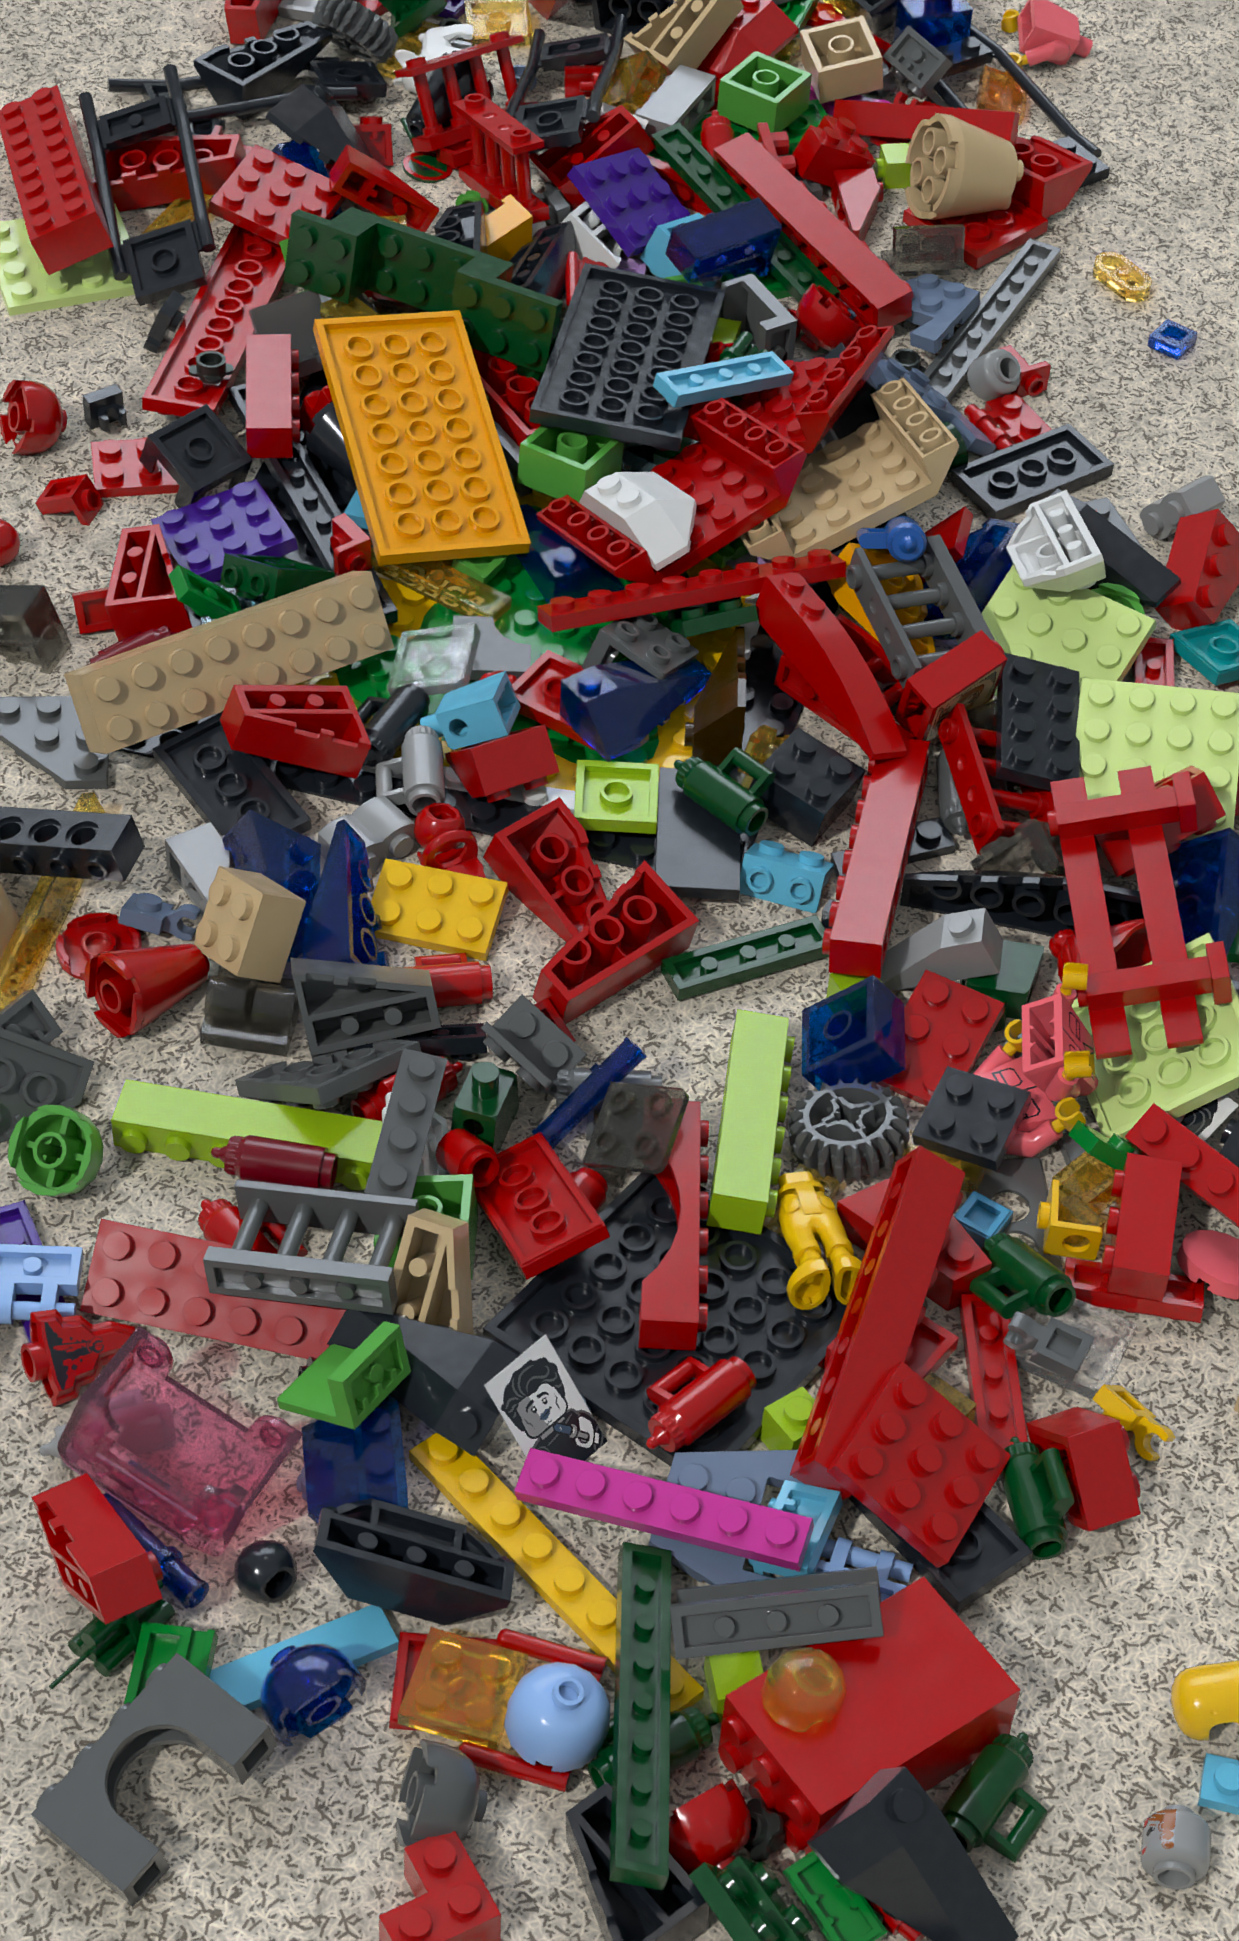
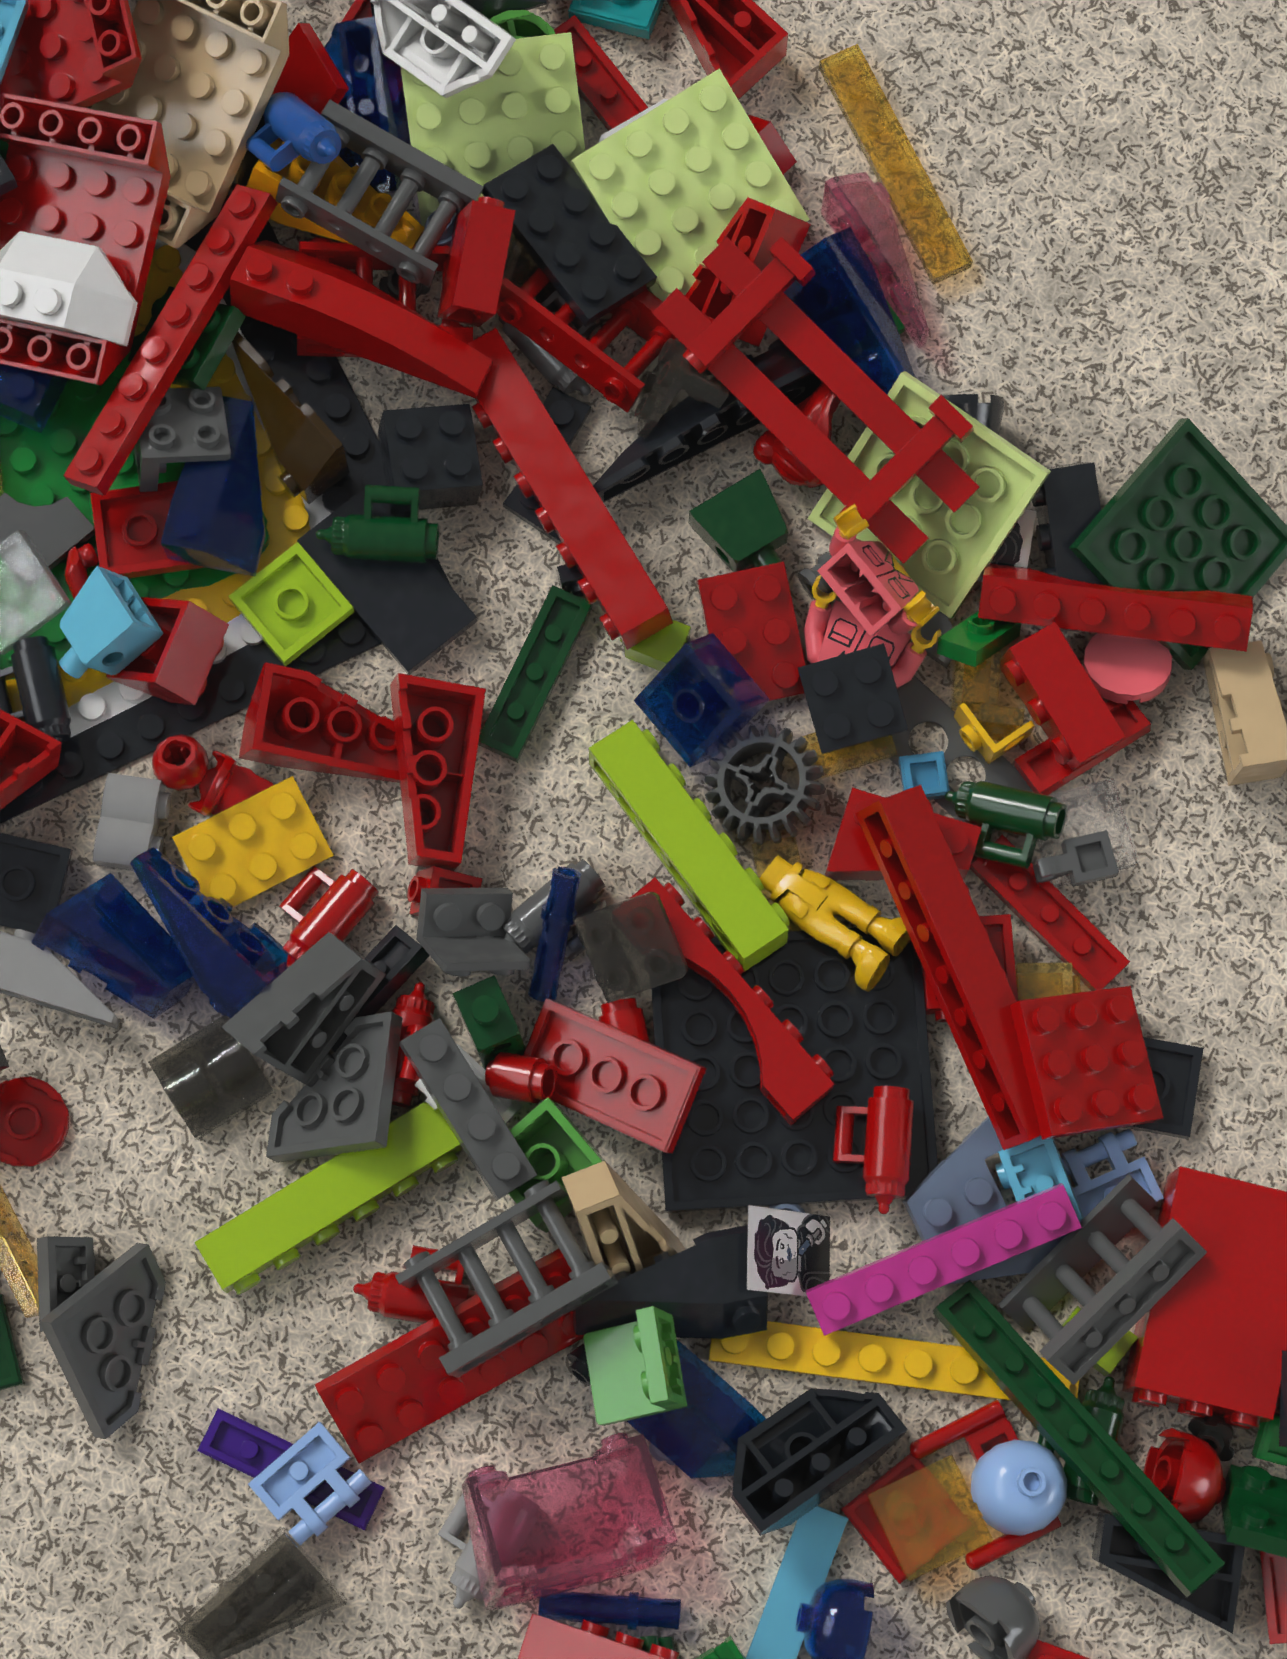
camera: 40 degrees left, 30 degrees up
(55, 1151) = (211, 1356): bright green cylinder -> none
(69, 1352) = (396, 1507): red rock -> none
(142, 983) = (110, 1133): red cone -> none
(152, 915) = (38, 1057): sand blue plate -> none
(249, 924) = (149, 1017): tan brick -> none
(265, 1571) = (709, 1553): black piece -> none
(278, 1161) = (390, 1215): dark red piece -> none
(421, 771) = (113, 720): light grey piece -> none
(763, 744) = (365, 453): clear yellow plate -> none
(784, 876) = (488, 558): medium azure bracket -> none
(786, 1420) = (957, 1096): lime brick -> none
(803, 1688) = (1186, 1338): clear yellow hair -> none
(952, 946) = (698, 548): light grey slope -> none
(1037, 1497) = (1168, 998): dark green piece -> none
(1095, 1464) = (1183, 941): red brick -> none
(1134, 1417) = (1171, 863): yellow plate -> none

